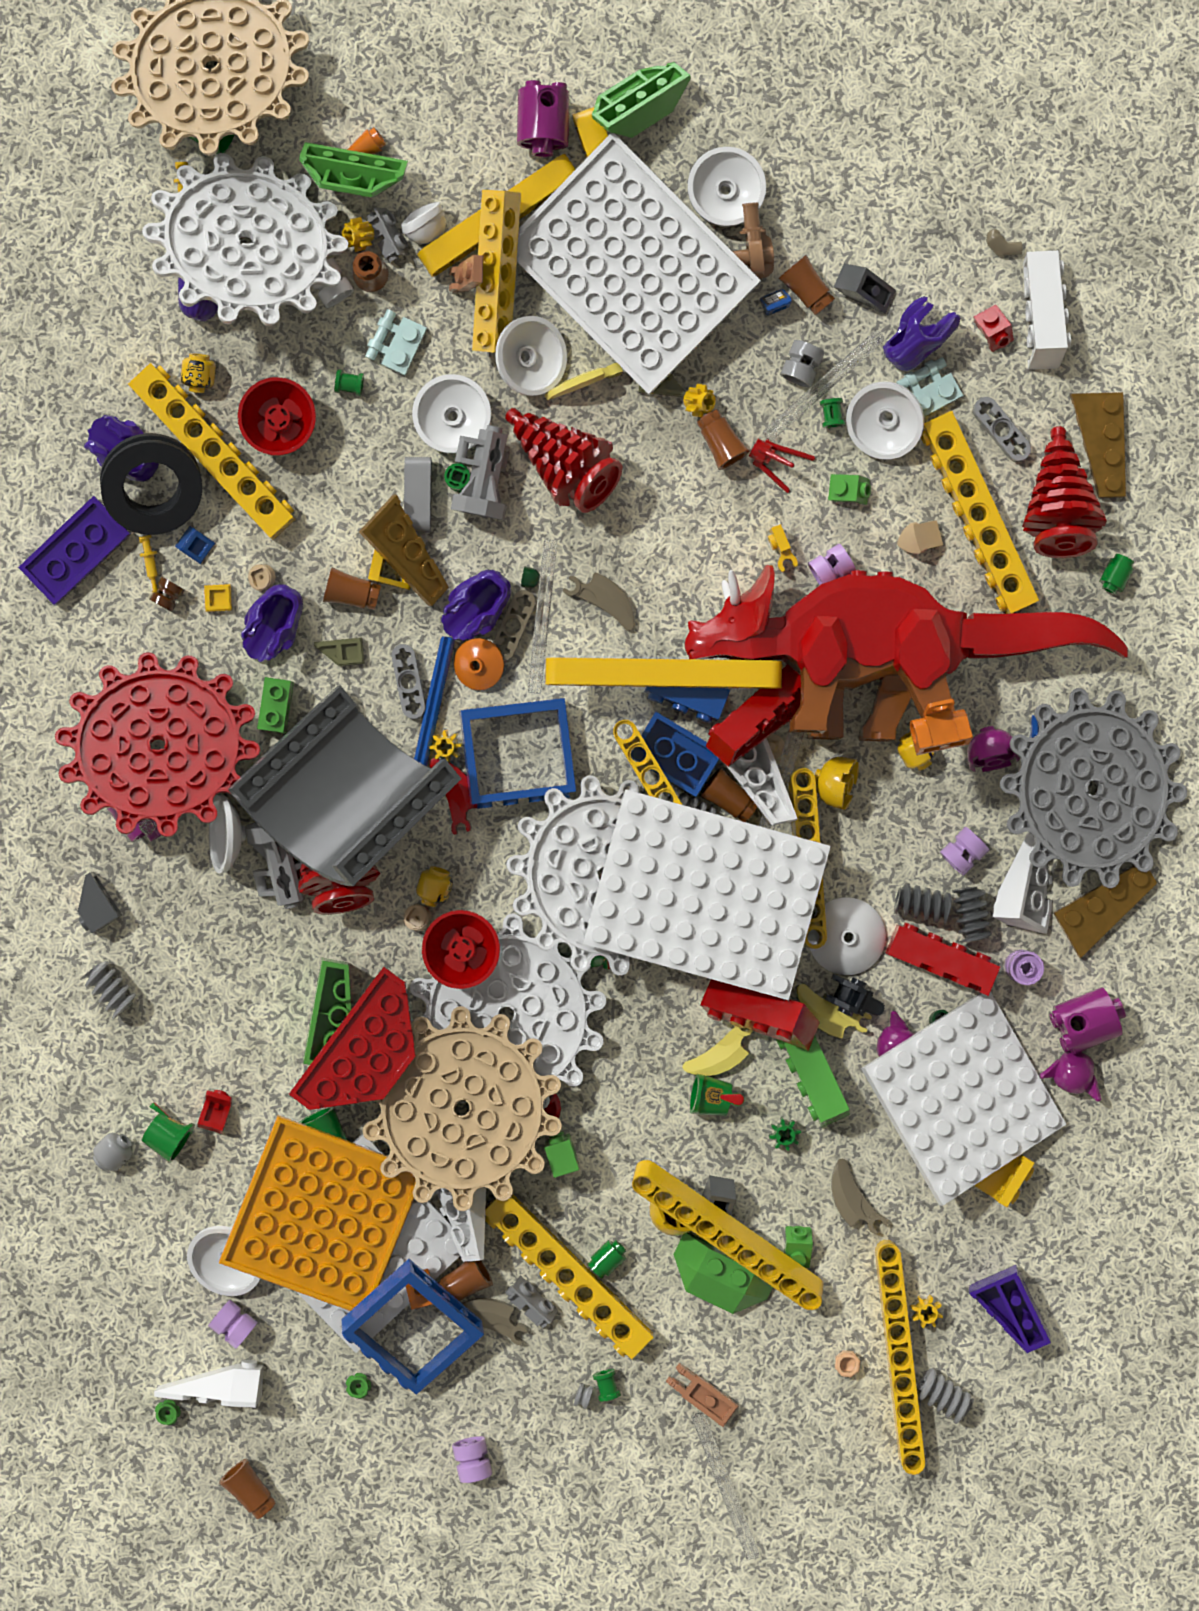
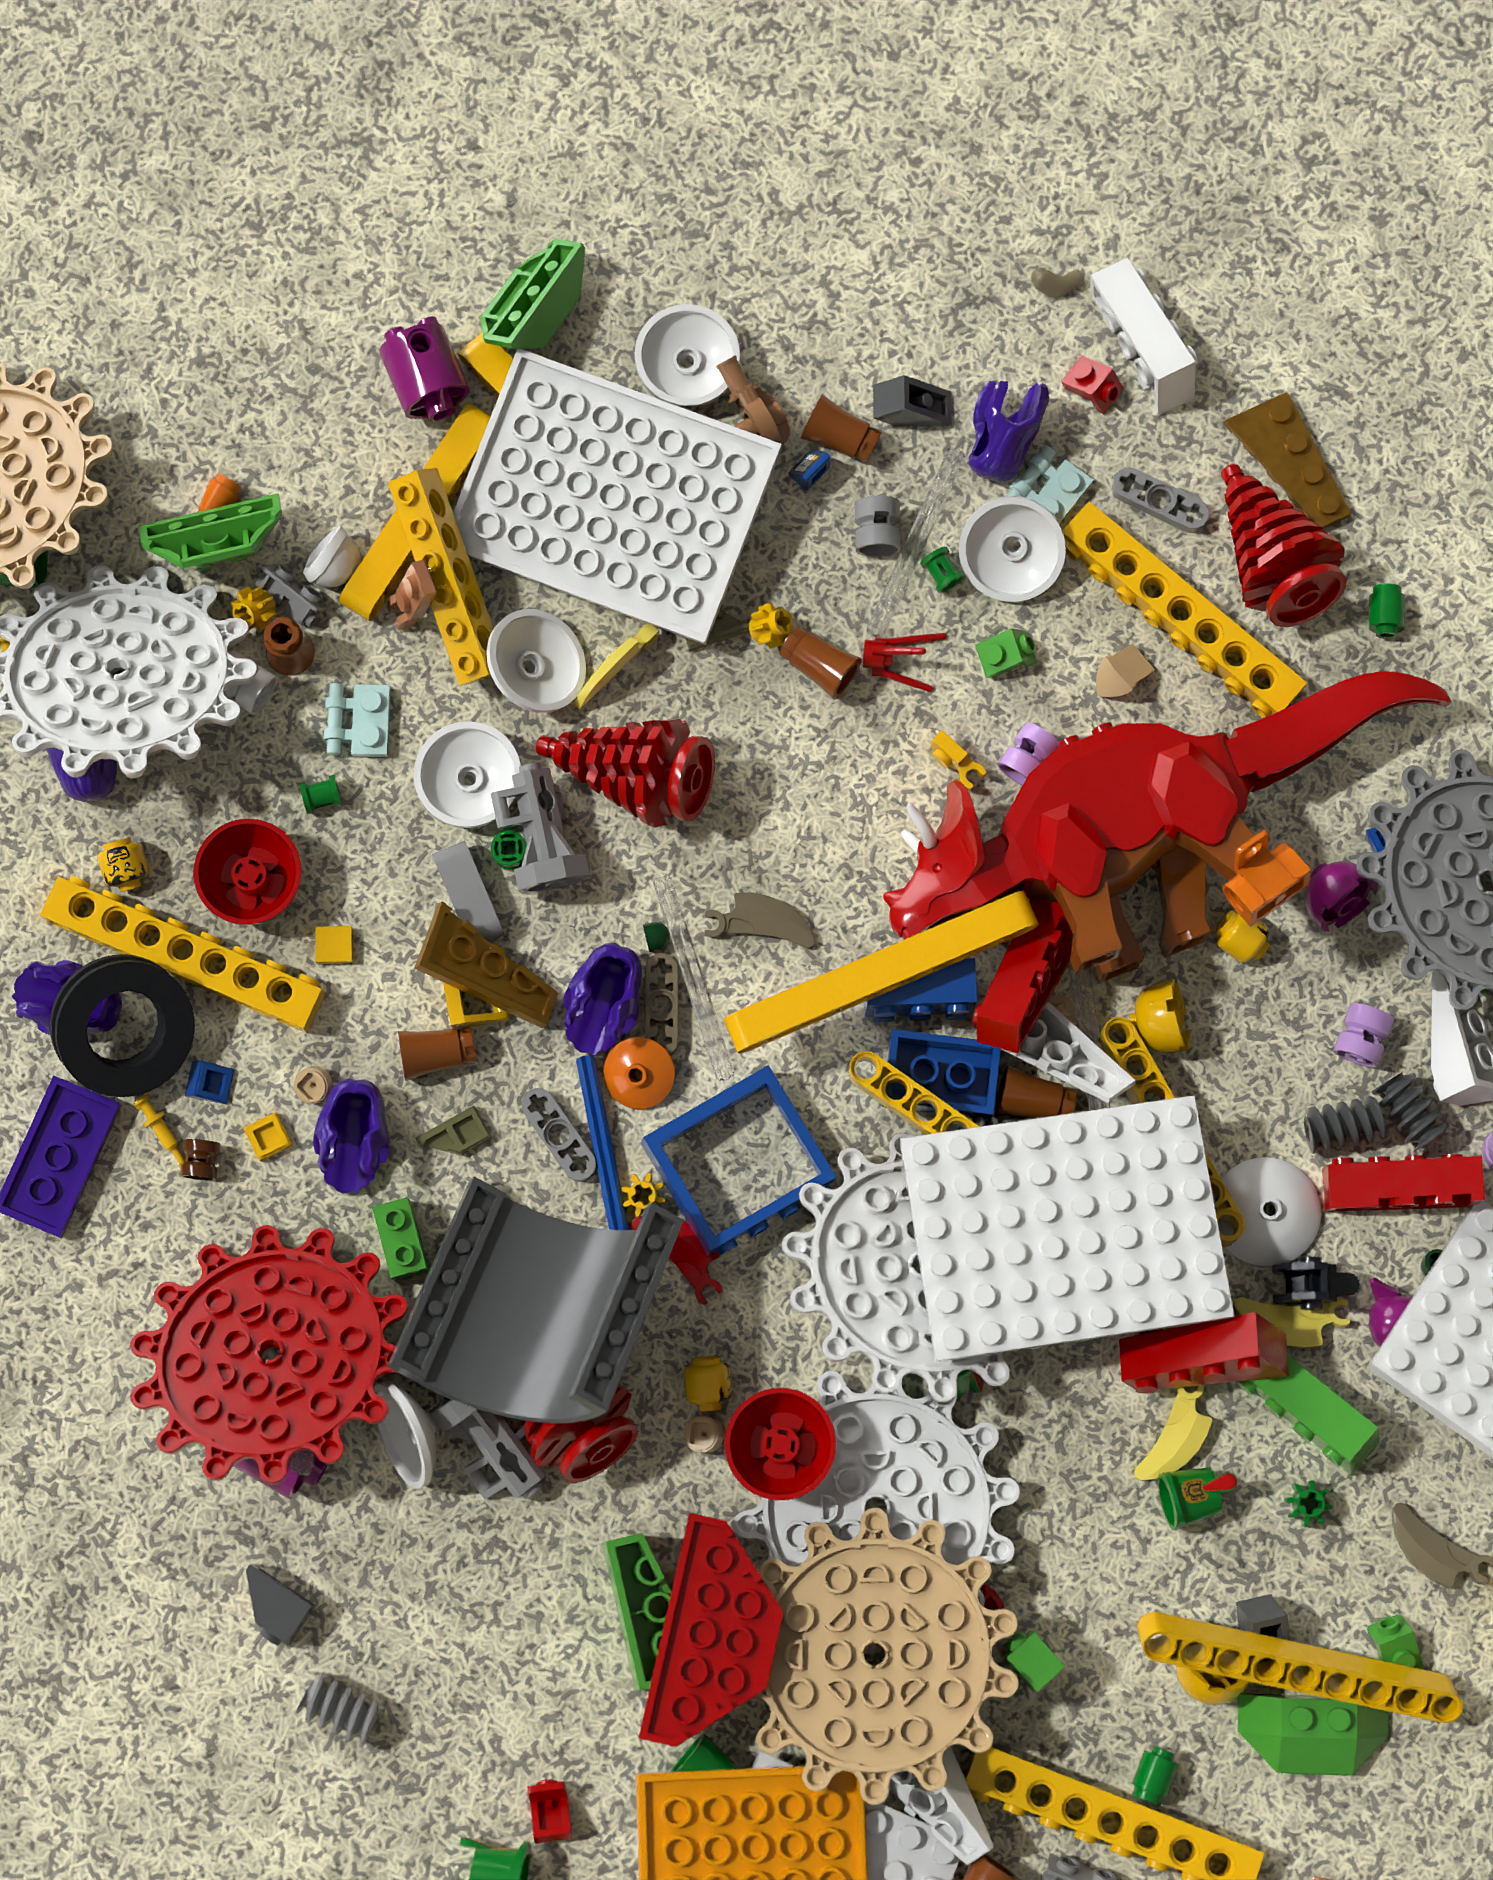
camera: 20 degrees left, 10 degrees down
(315, 488) = (334, 944): none -> yellow tile

